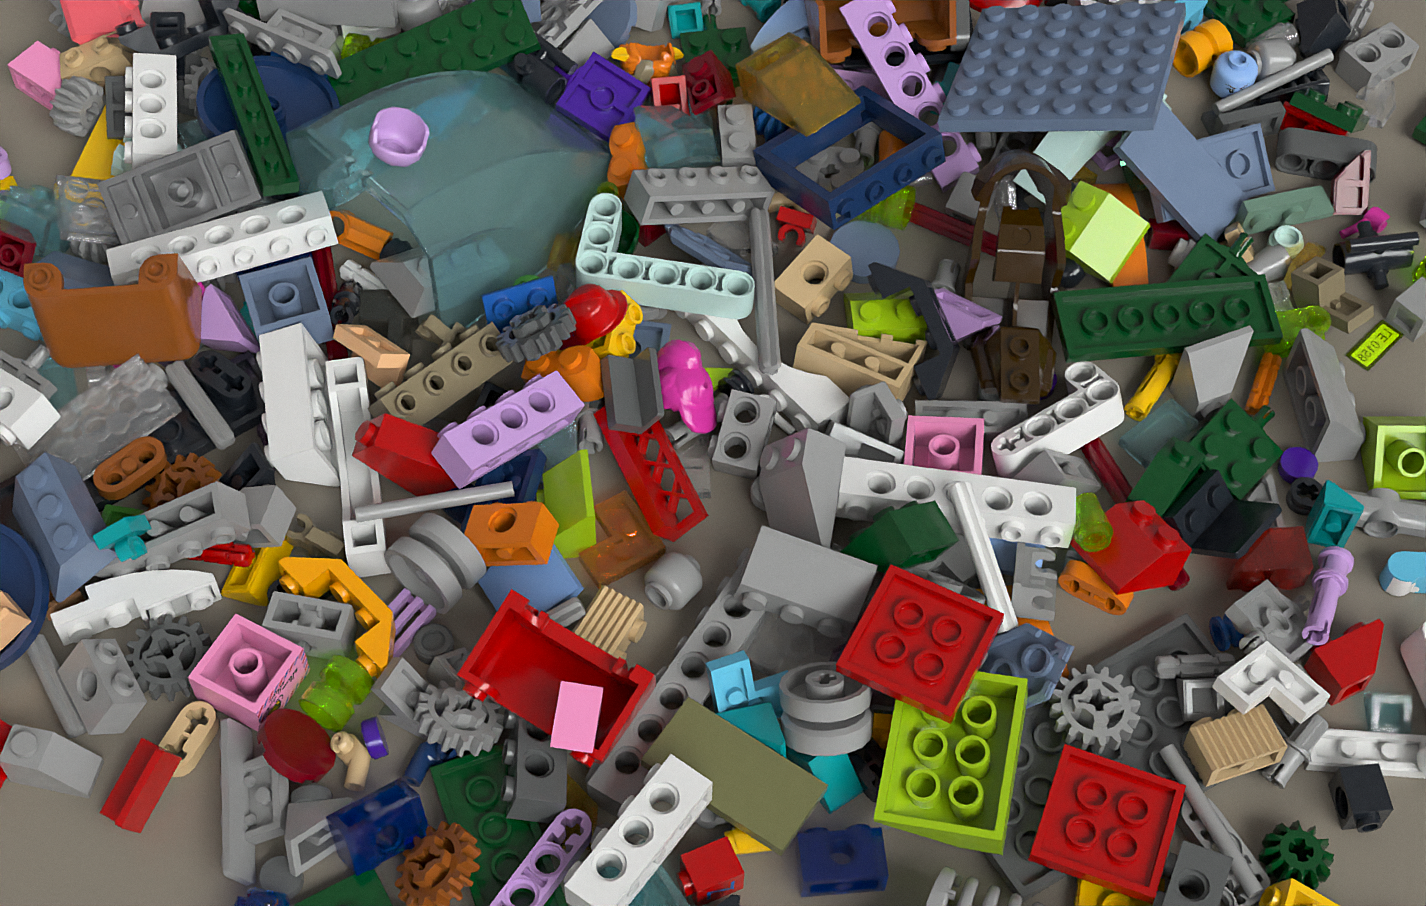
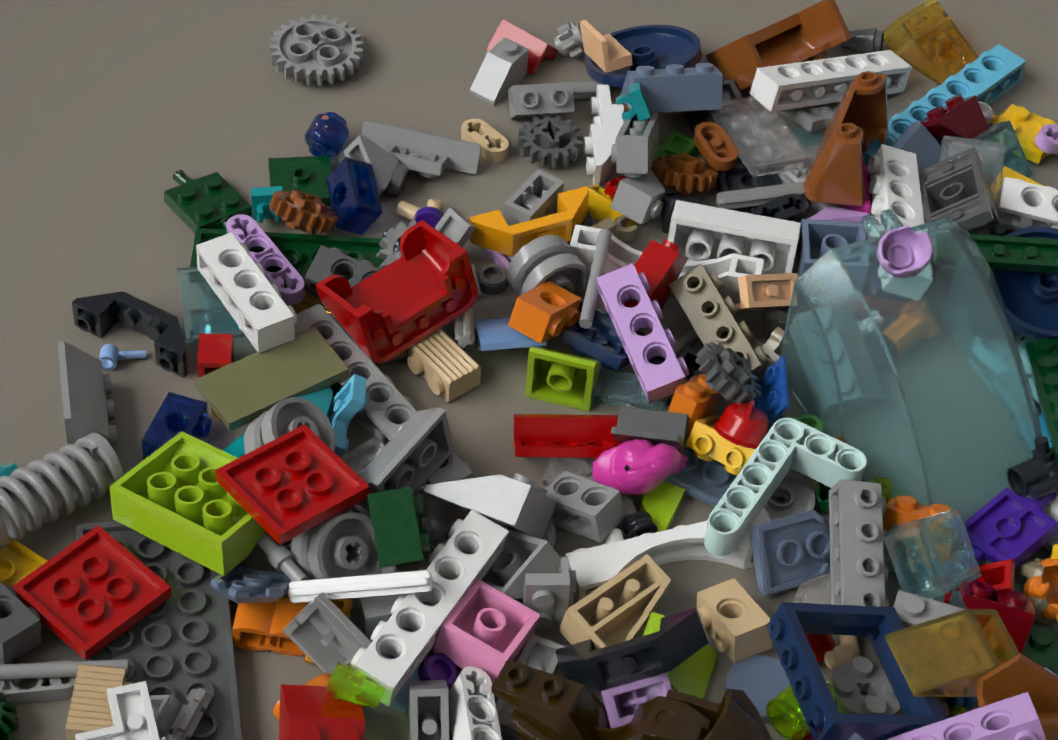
camera: 110 degrees right, 10 degrees down
(140, 786) = (454, 103): red panel -> none
(249, 672) = (506, 163): bright pink brick -> none
(296, 746) = (441, 174): dark red tile -> none
(333, 698) = (470, 199): clear neon green wheel -> none
(576, 717) = (357, 279): bright pink slope -> none
(628, 542) = (512, 397): clear orange plate -> none
(673, 581) = (467, 417): light grey head -> none
(764, 292) = (722, 565): light grey axle -> none
(1099, 704) = (190, 624): light grey gear -> none

